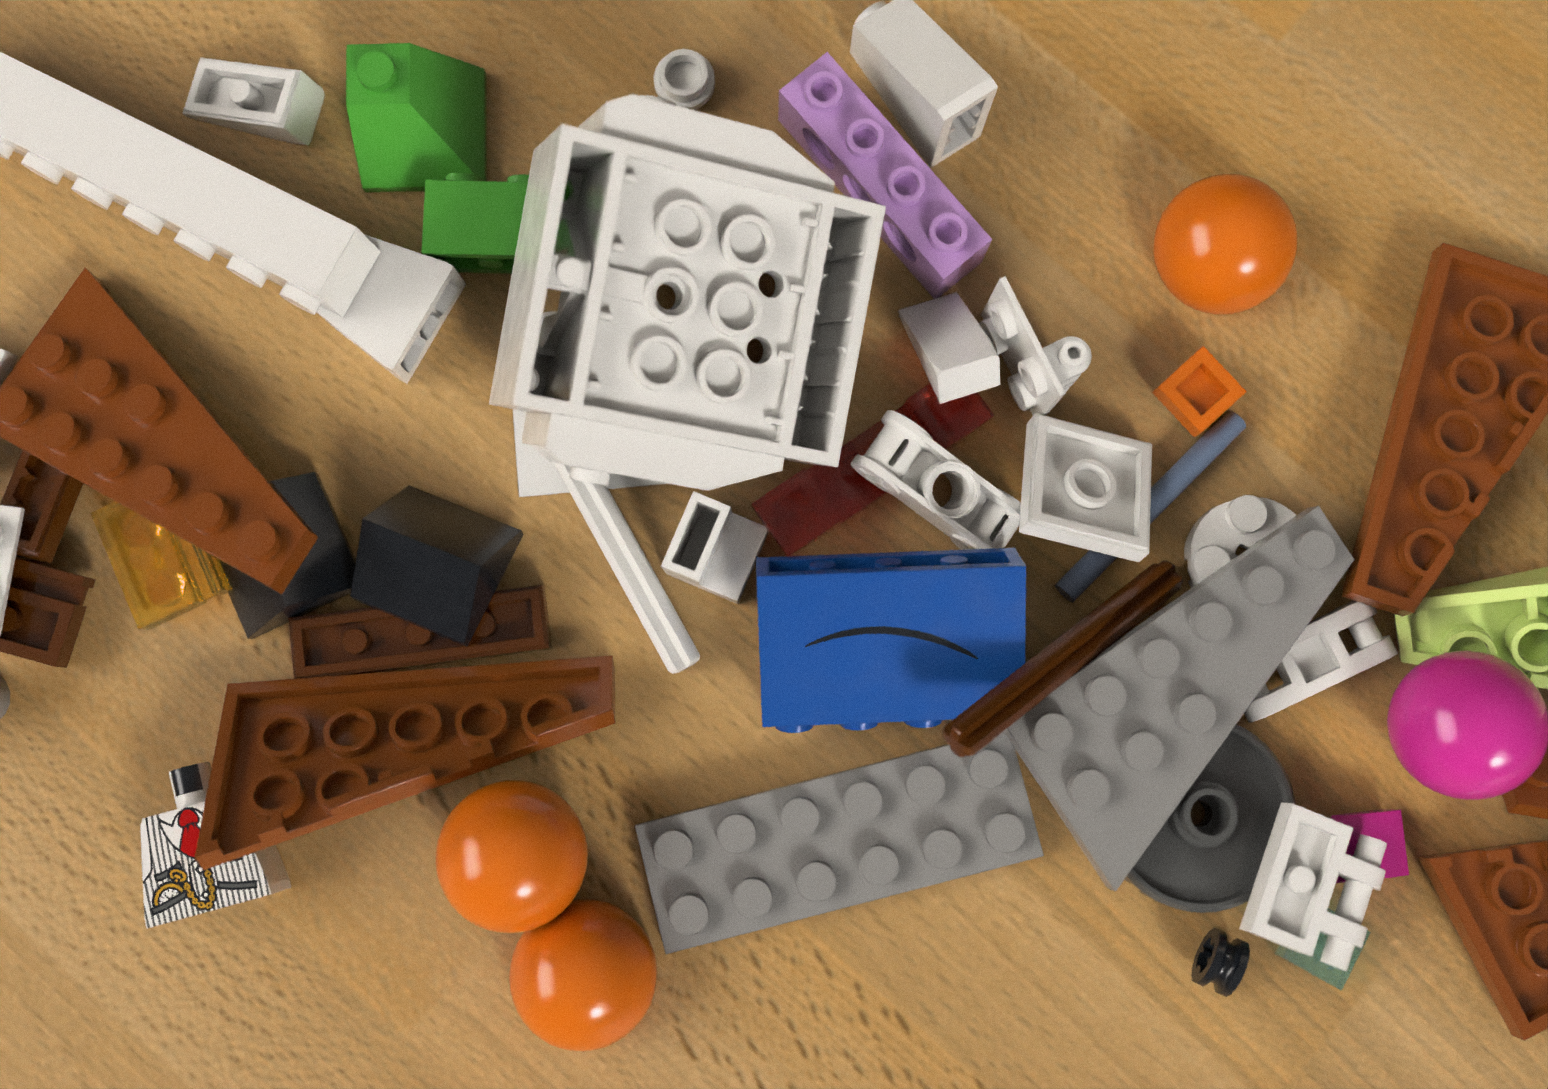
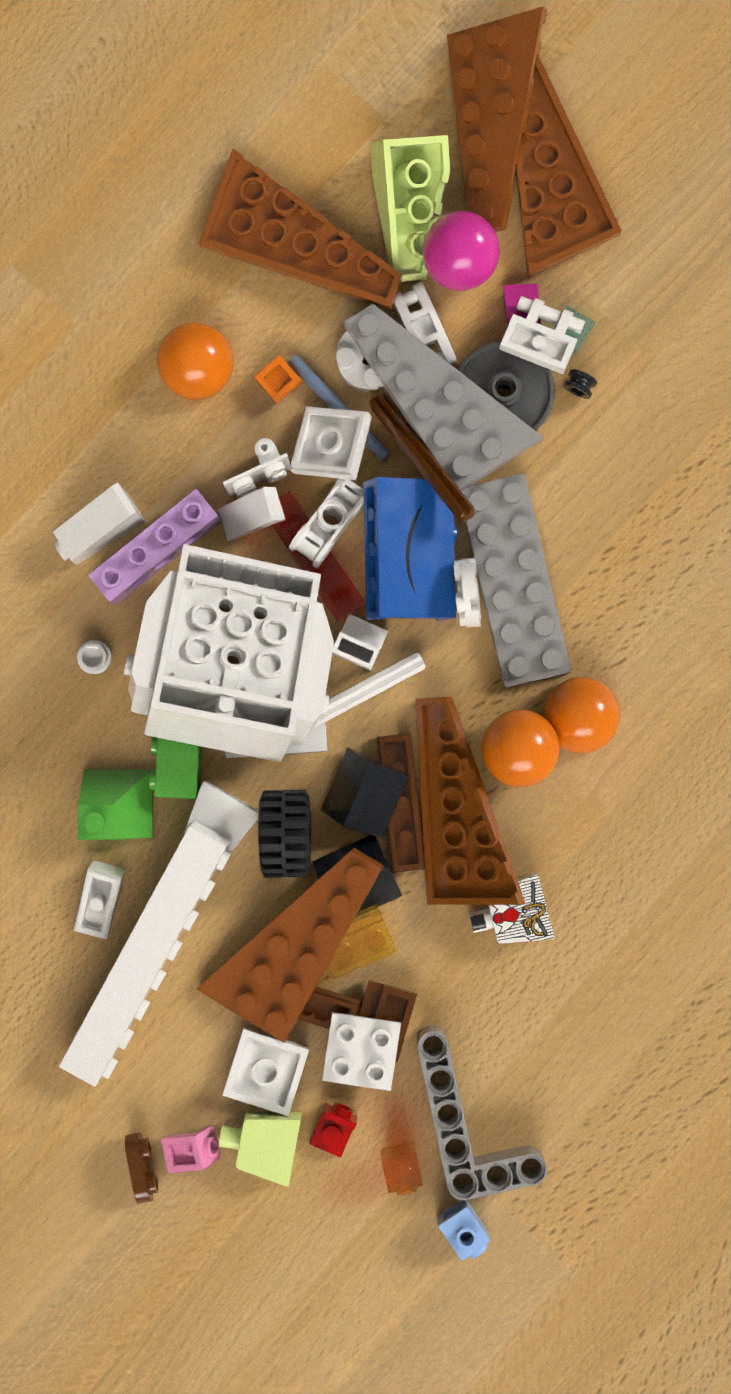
camera: 80 degrees left, 5 degrees up
(351, 410) = (284, 833): none -> black tyre
(792, 751) = (468, 592): none -> white plate

